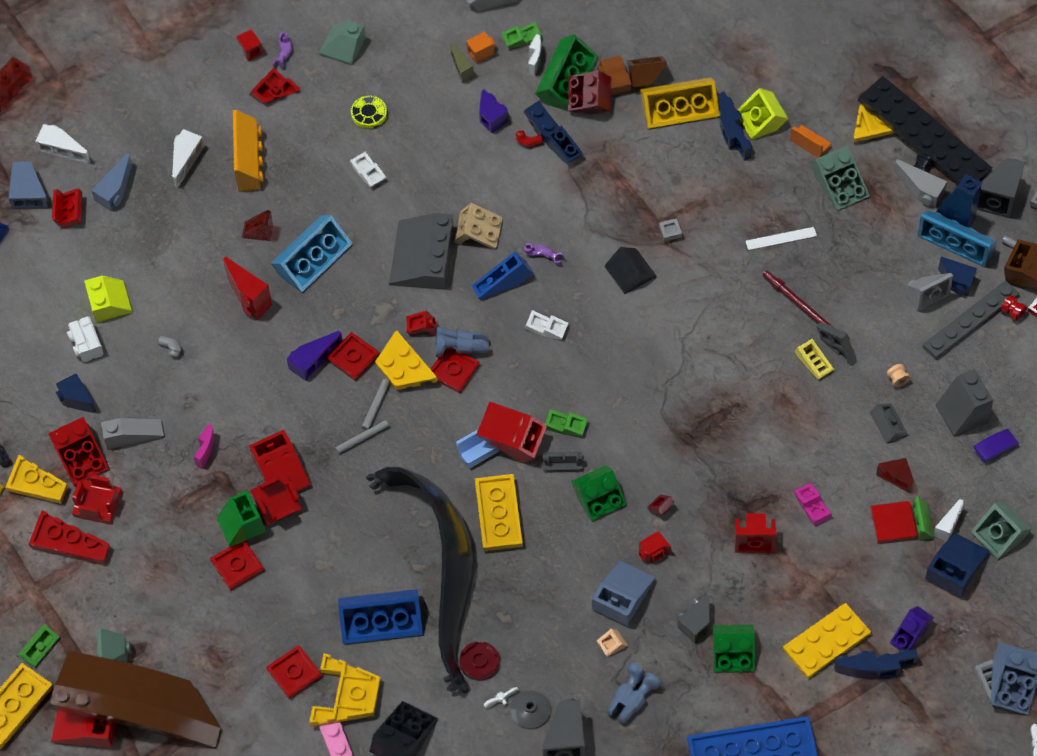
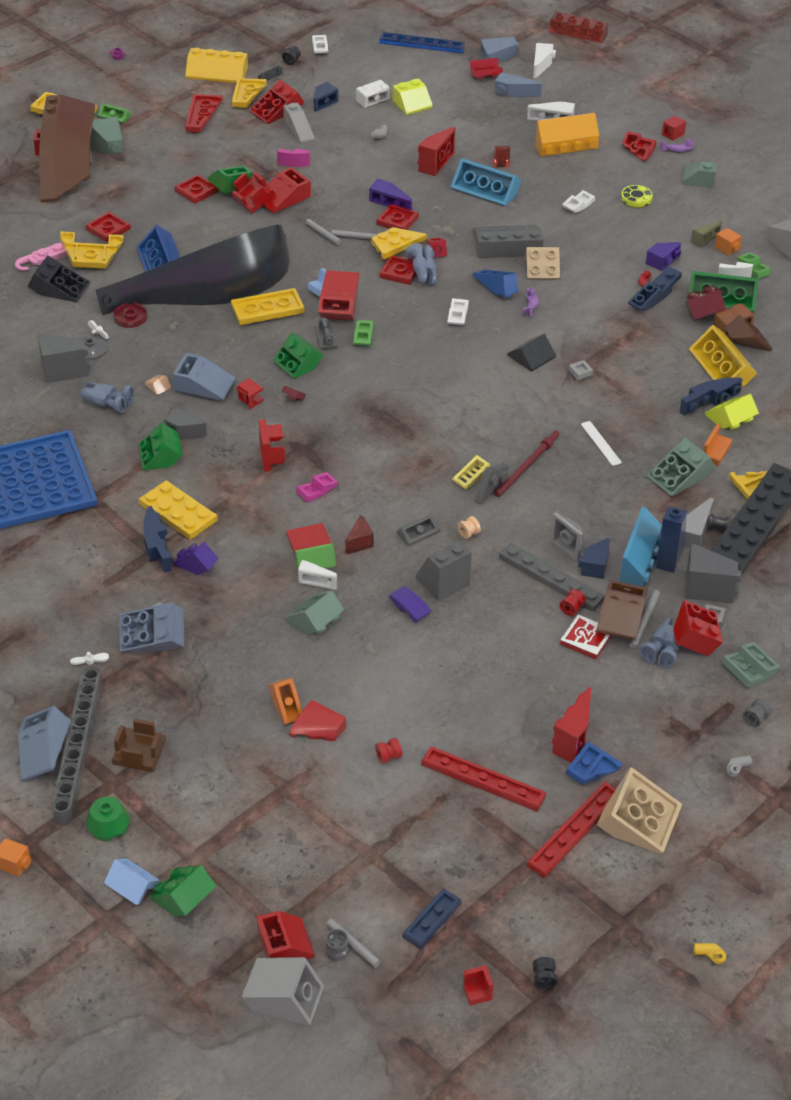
camera: 75 degrees right, 15 degrees down
(96, 499) = (237, 118): red panel -> none
(956, 564) = (269, 581): dark blue slope -> none

